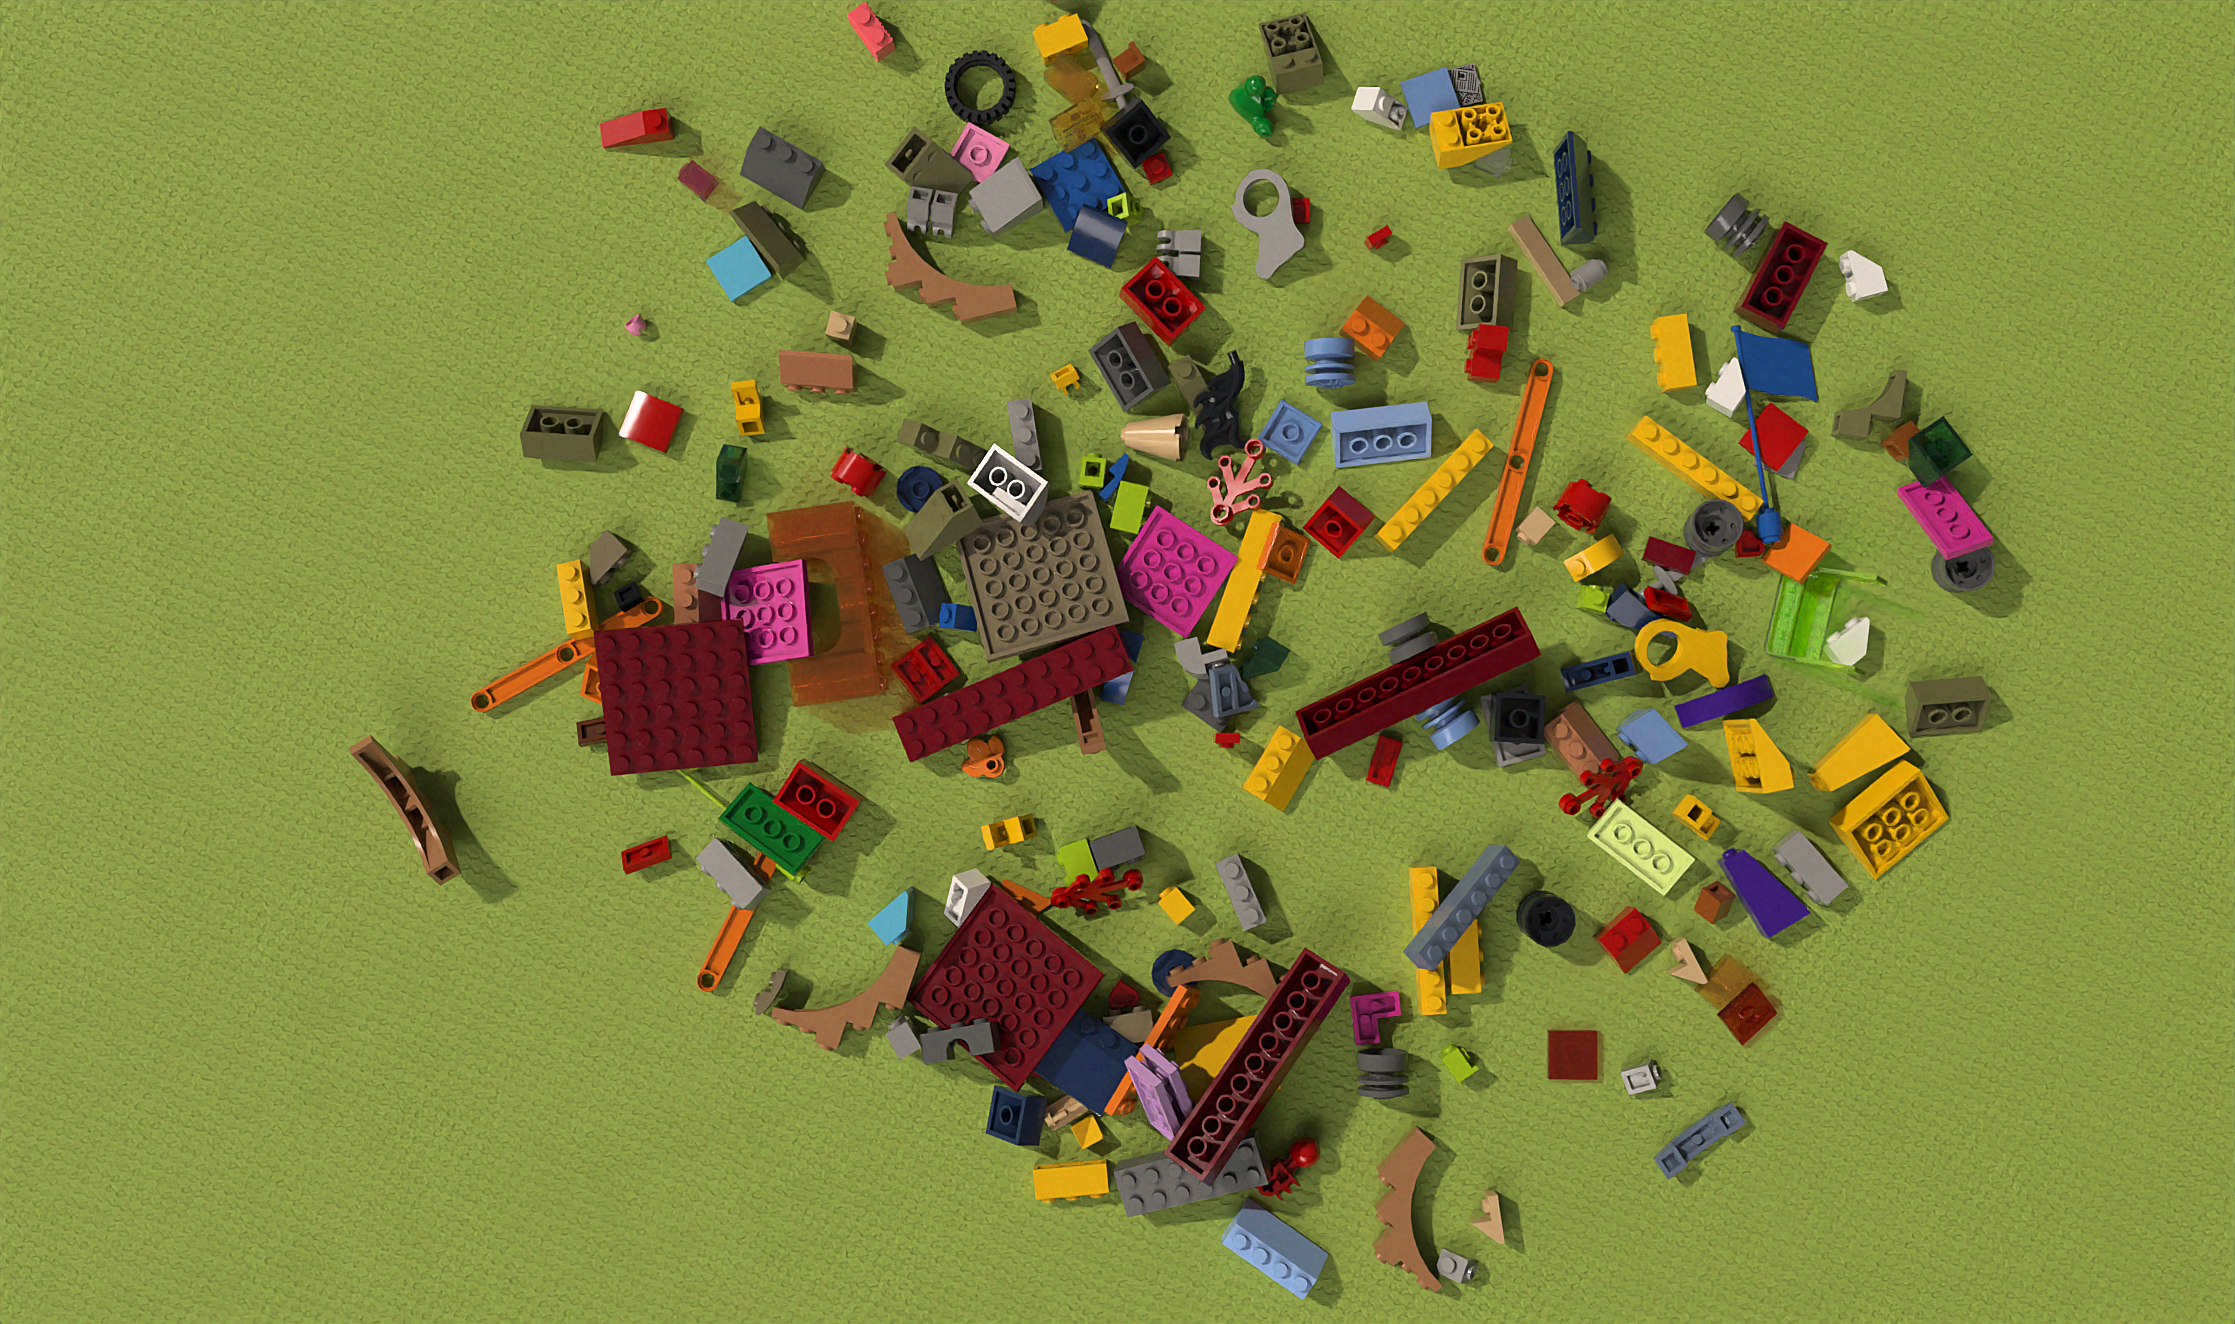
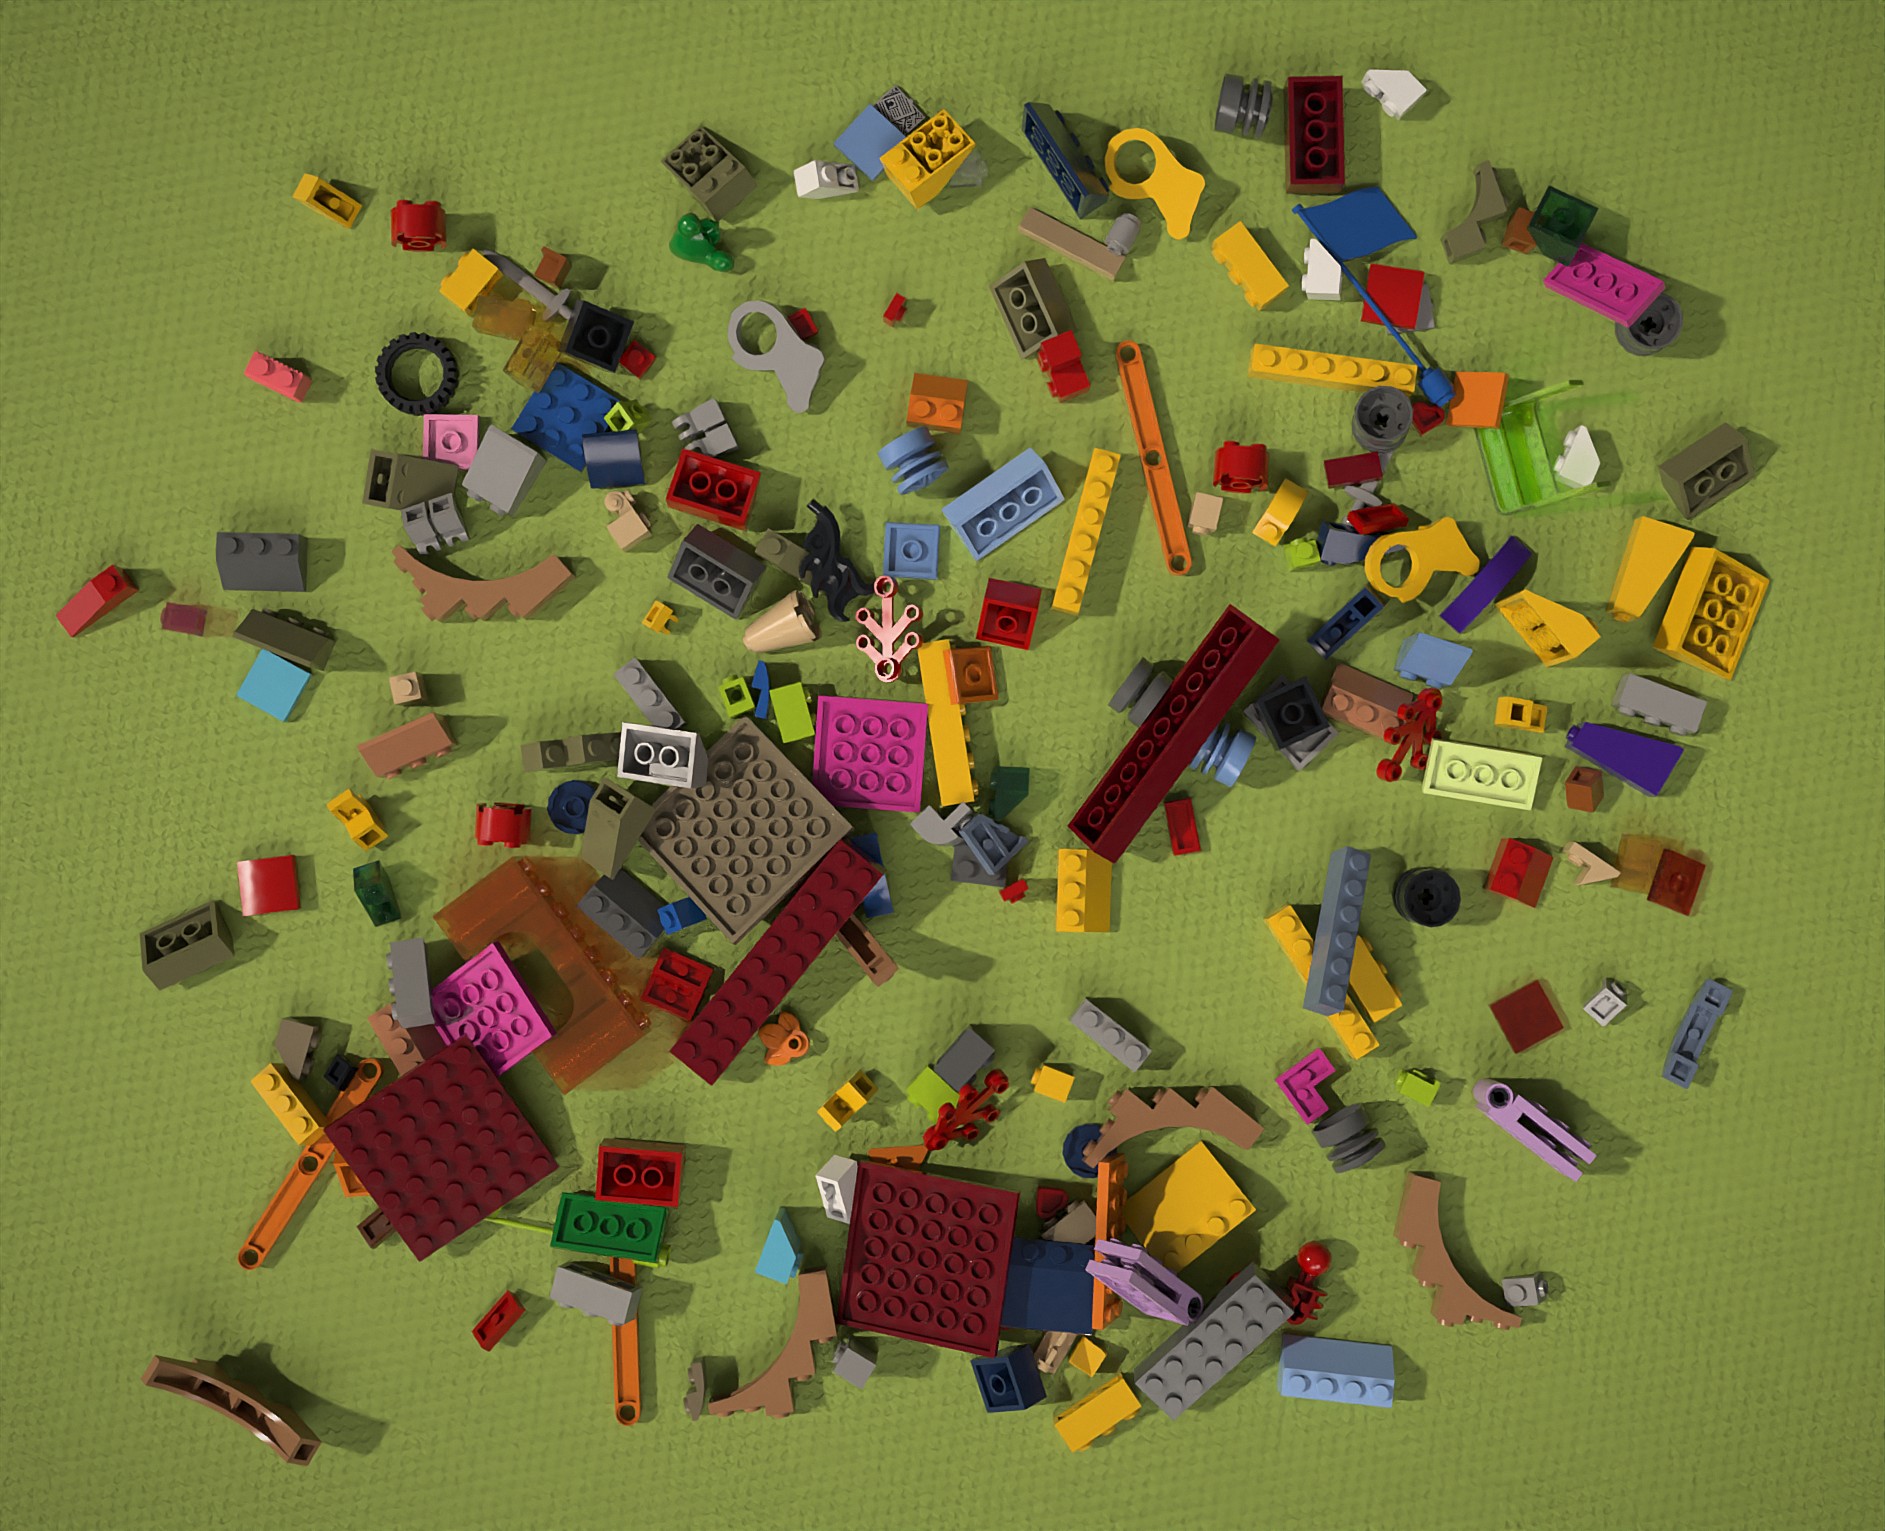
camera: 25 degrees left, 0 degrees up
(635, 324) = (200, 796): bright pink hinge -> none
(939, 1044) = (930, 1323): dark grey arch -> none
(1081, 296) = (630, 526): none -> tan brick
(1257, 1066) = (1220, 1203): dark red brick -> none
(1492, 1223) = (1536, 1229): tan slope -> none
(1518, 1115) = (1506, 1107): none -> lavender hinge
(1647, 257) = (1170, 185): none -> yellow animal

